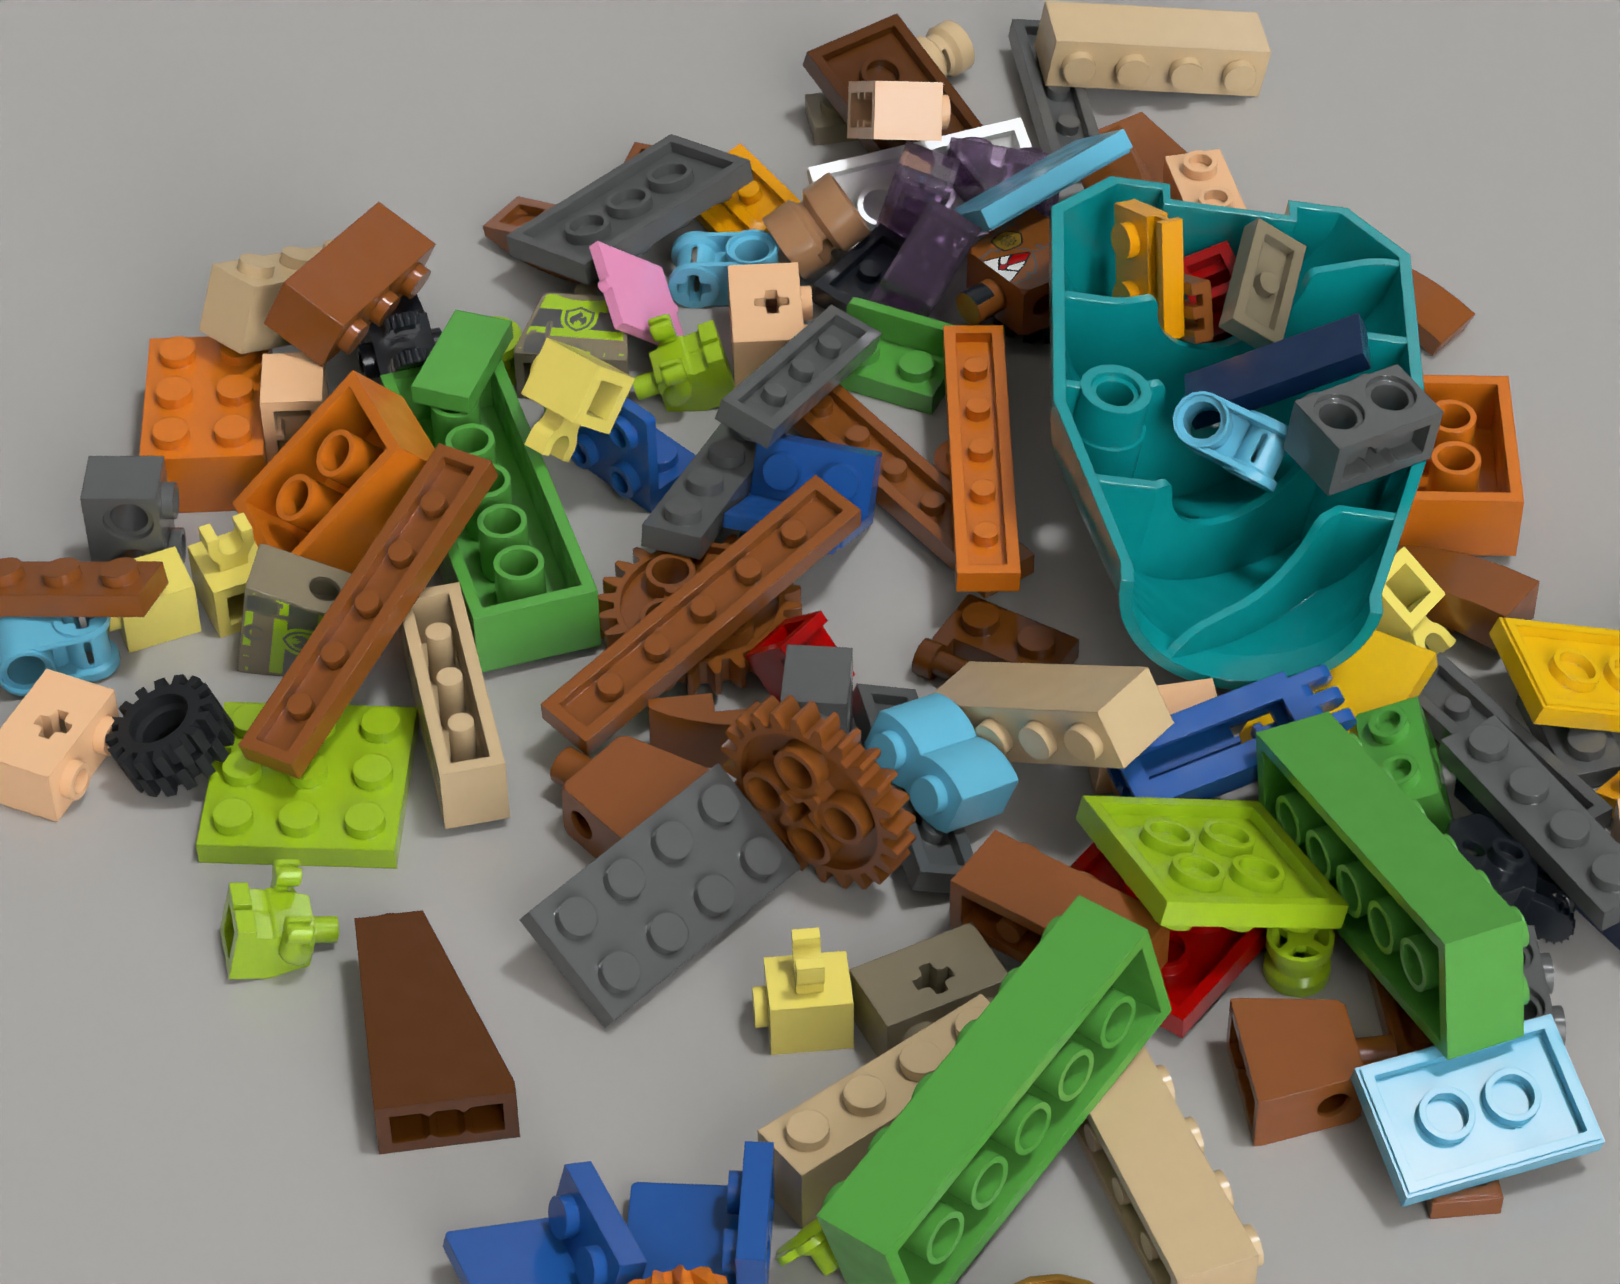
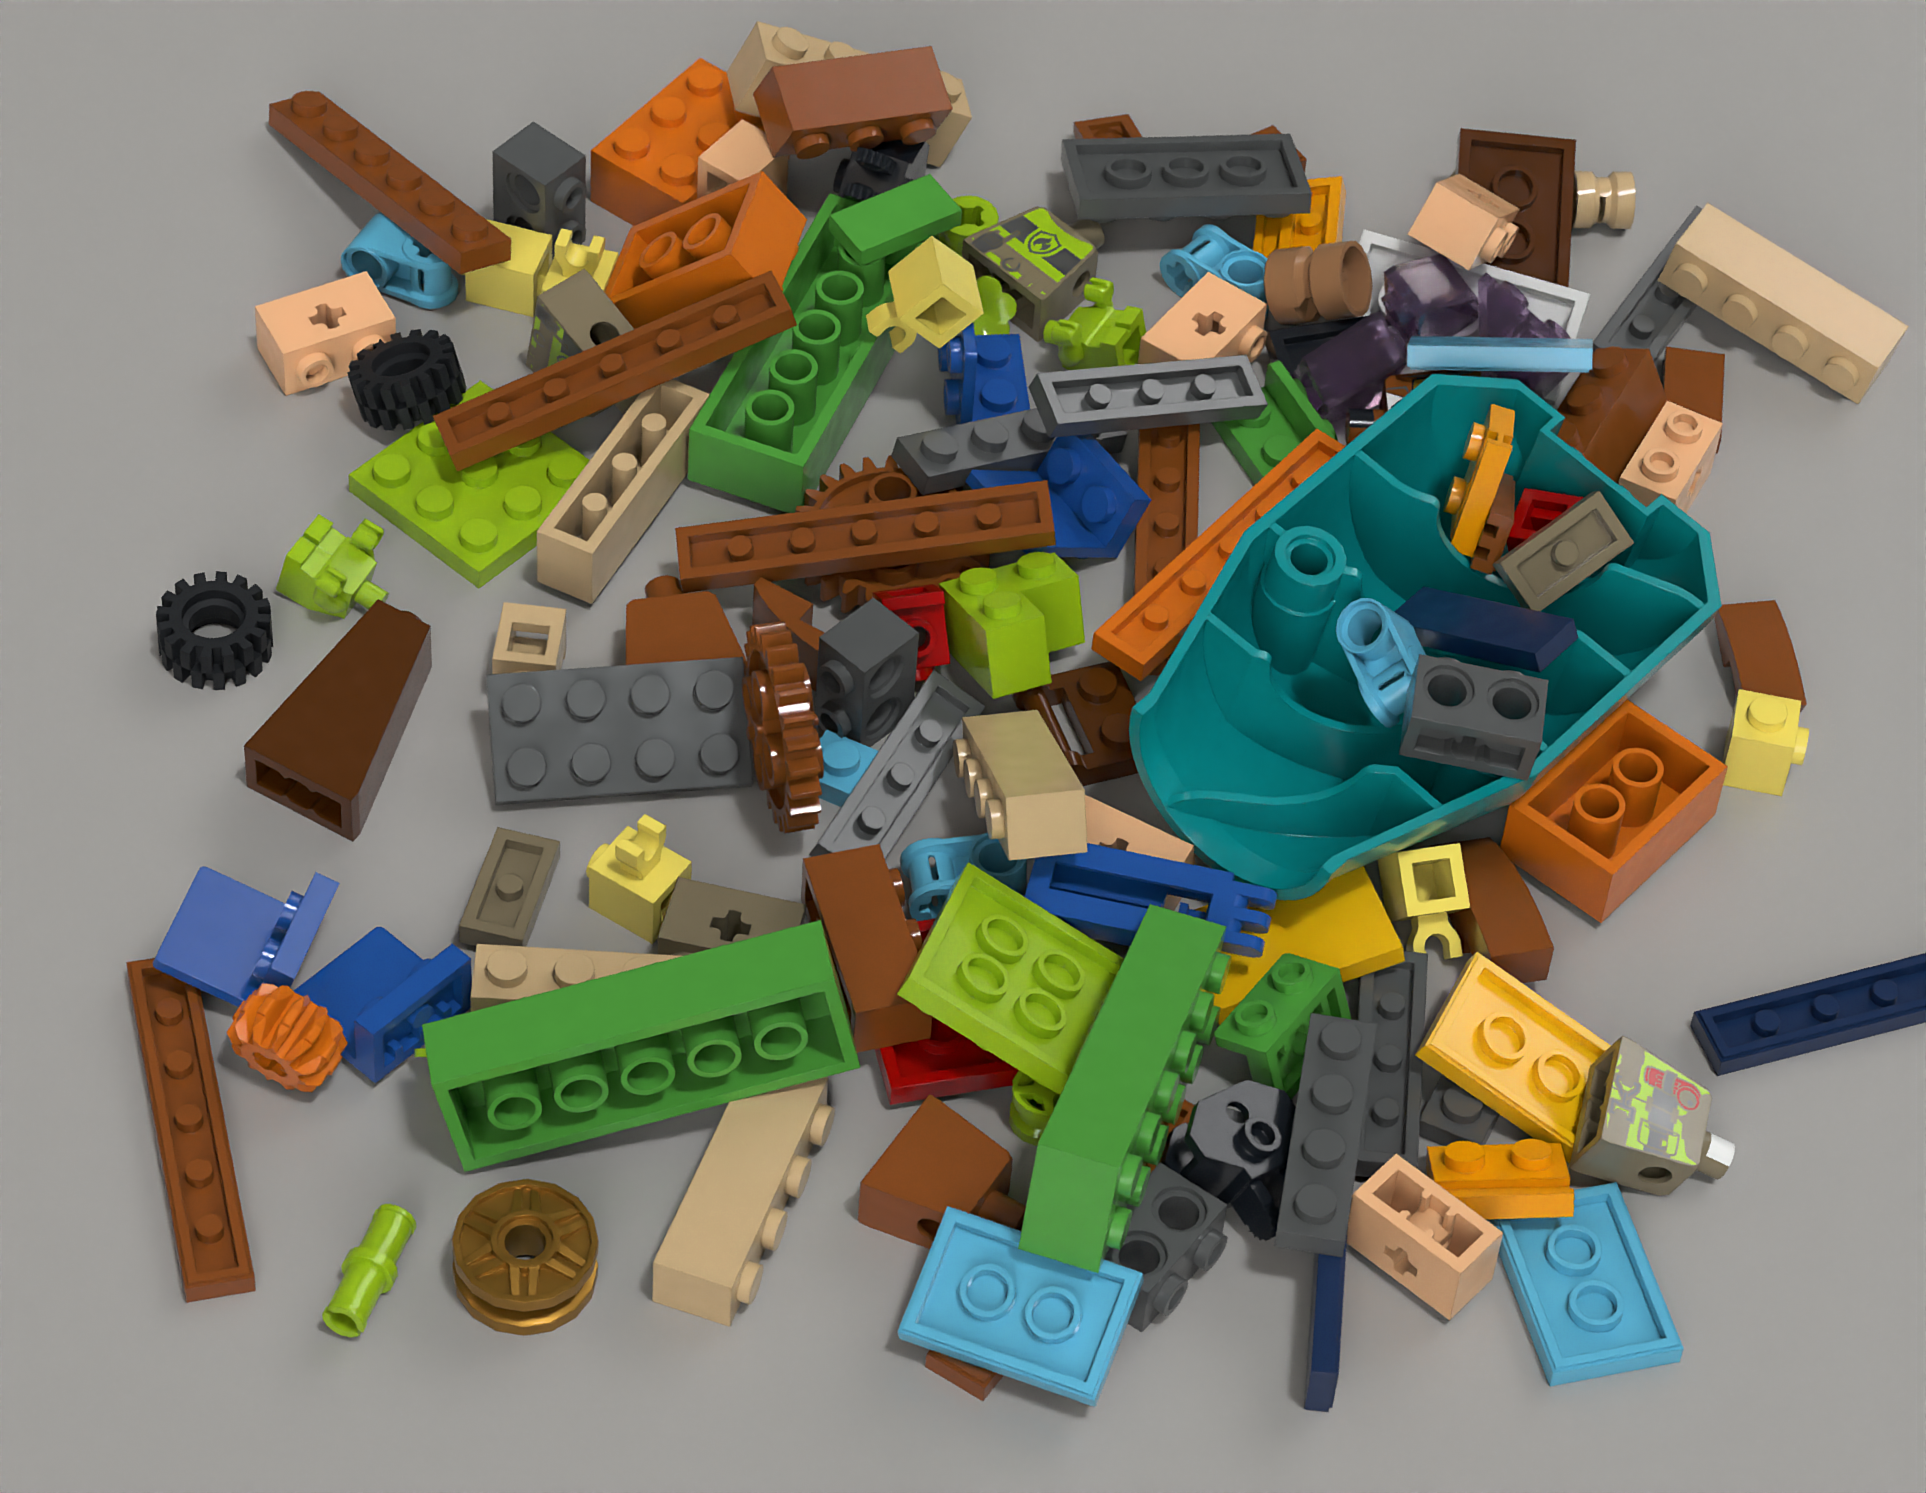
camera: 35 degrees right, 5 degrees up
(225, 1072) = (211, 604): none -> black tyre
(516, 889) = (529, 654): none -> tan brick
(633, 291) = (1111, 246): bright pink piece -> none
(707, 1081) = (509, 889): none -> dark tan plate
(881, 607) = (1011, 619): none -> lime brick
(942, 762) = (916, 769): medium azure brick -> none
(1048, 812) = (950, 859): none -> medium azure piece
(1486, 345) = (1763, 742): none -> light yellow brick

